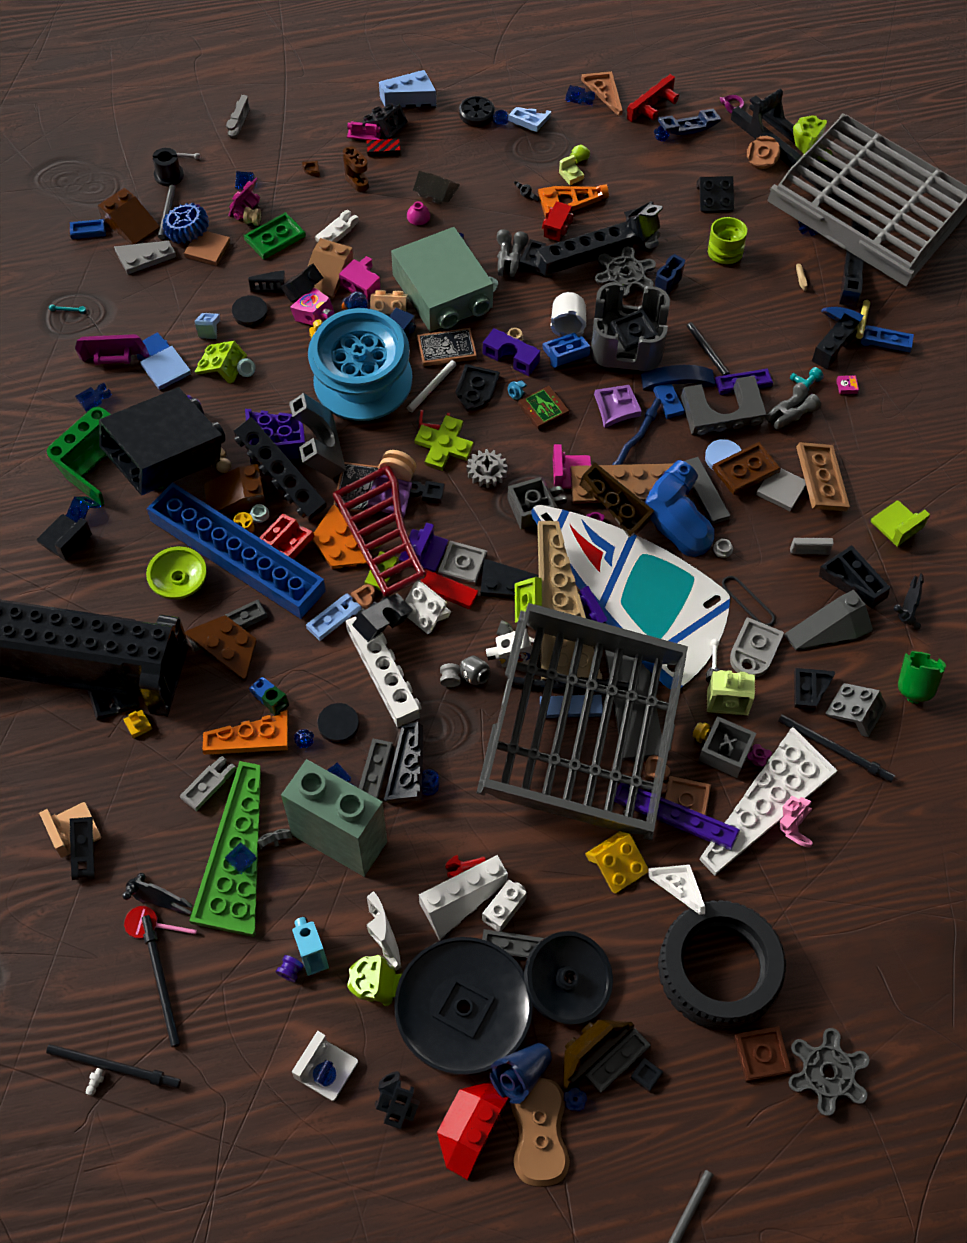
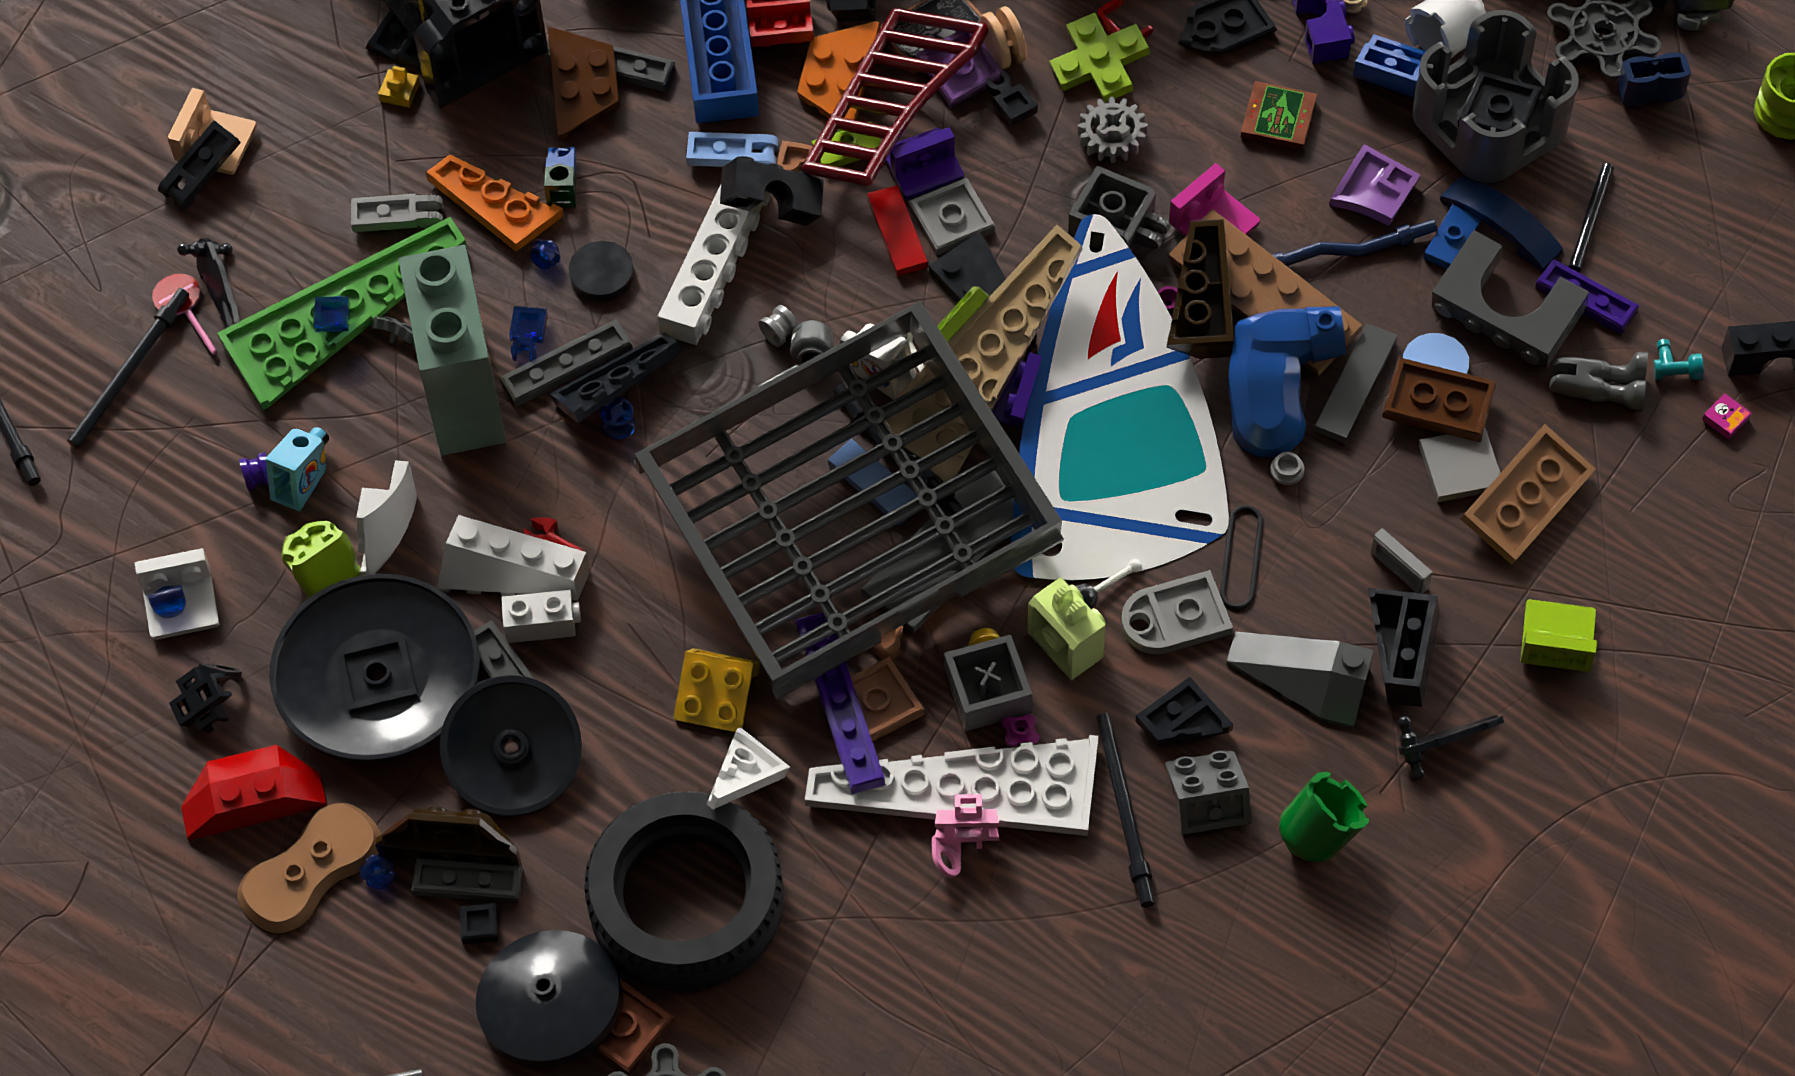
camera: 50 degrees right, 0 degrees up
(426, 607) = (843, 227): white bracket -> none
(515, 389) = (1268, 66): dark azure plate -> none
(520, 1072) = (353, 784): dark blue cone -> none
(718, 1098) = (548, 998): none -> black dish

